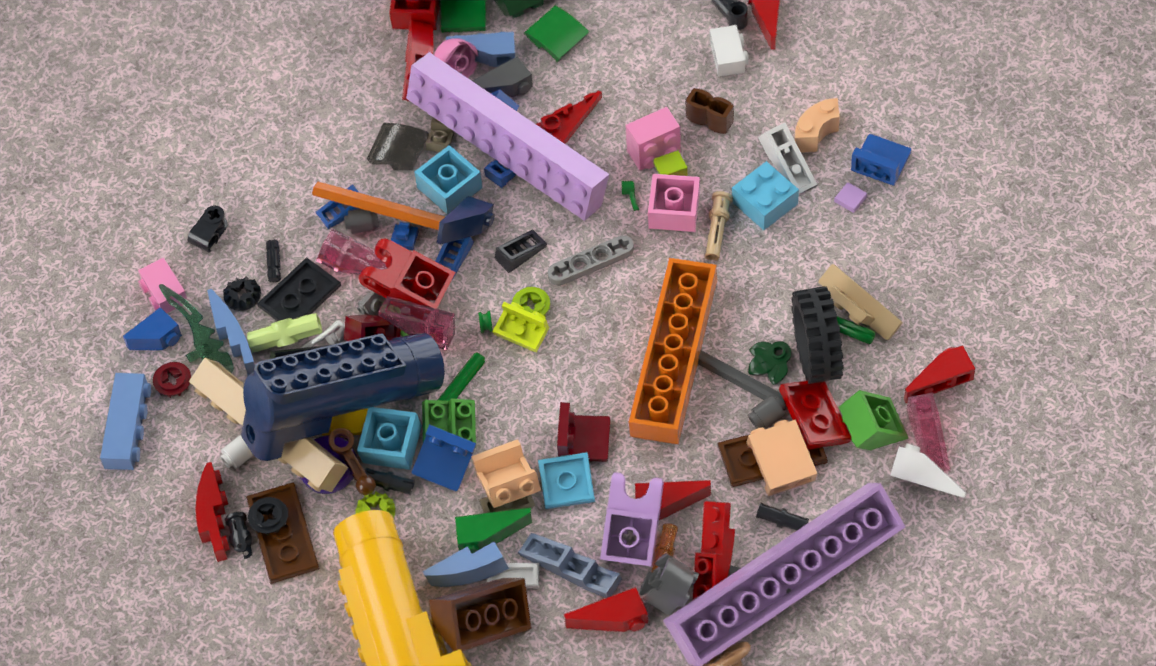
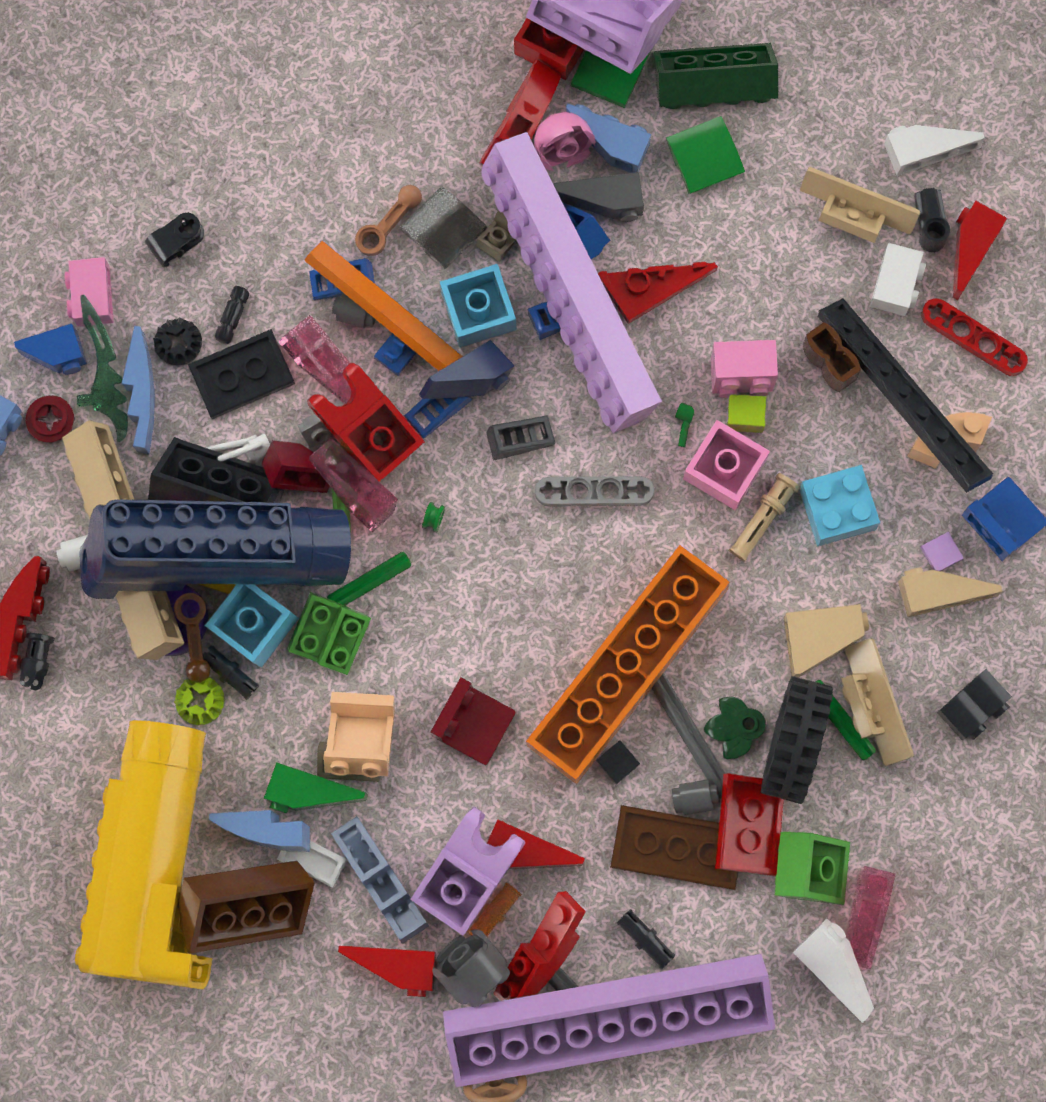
camera: 25 degrees right, 20 degrees up
(267, 506) = (60, 653): black gear -> none
(284, 332) = (199, 422): yellowish green piece -> none
(291, 549) = (85, 678): reddish brown tile -> none
(363, 140) = (408, 198): none -> nougat piece
(443, 458) = (301, 677): blue bracket -> none
(521, 326) = (469, 546): neon yellow bracket -> none
(536, 296) = (488, 505): lime gear -> none
(566, 480) = (427, 770): medium azure tile -> none
(676, 21) = (857, 208): none -> tan bracket
(700, 418) = (618, 762): none -> black tile
(779, 110) = (906, 396): none -> black tile
(782, 456) = (682, 865): light nougat panel -> none
(787, 157) = (892, 465): white slope -> none
(796, 273) = (822, 634): none -> tan slope
(798, 61) = (976, 333): none -> red beam
(862, 217) = (939, 590): none -> tan slope
(925, 275) = (974, 705): none -> black brick
(944, 372) = (932, 844): red slope -> none

